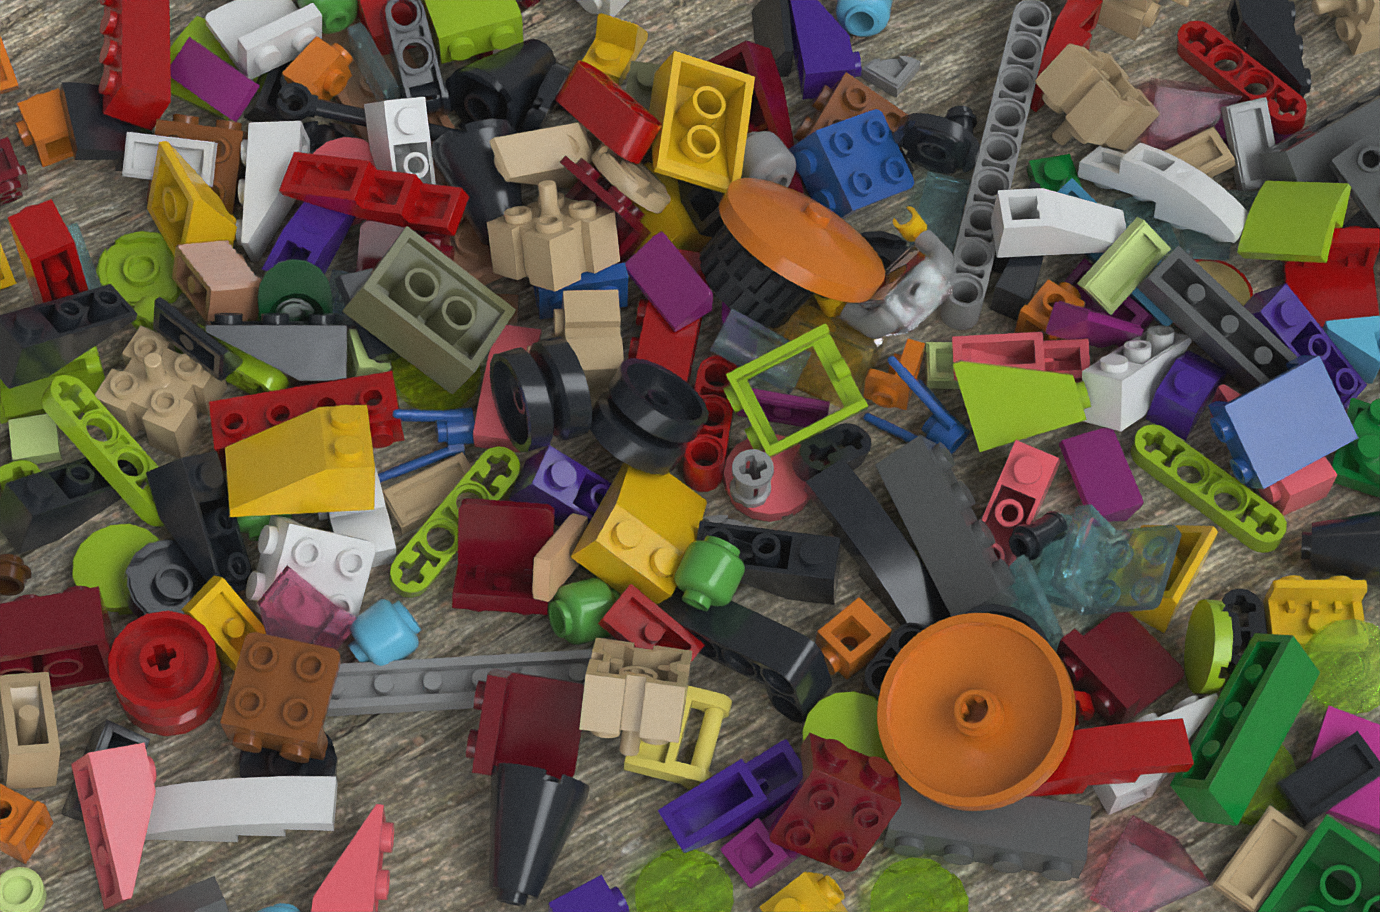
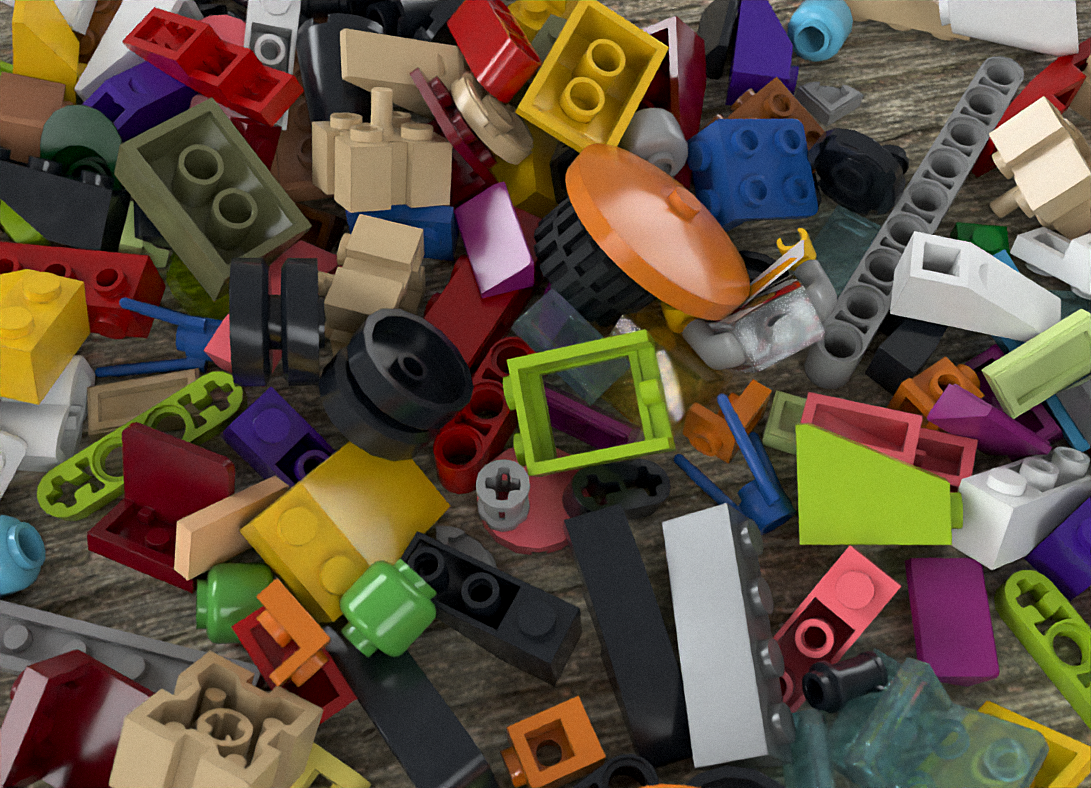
camera: 20 degrees right, 0 degrees up
(652, 600) = (288, 620): none -> orange bracket
(900, 246) = (775, 271): none -> white sticker

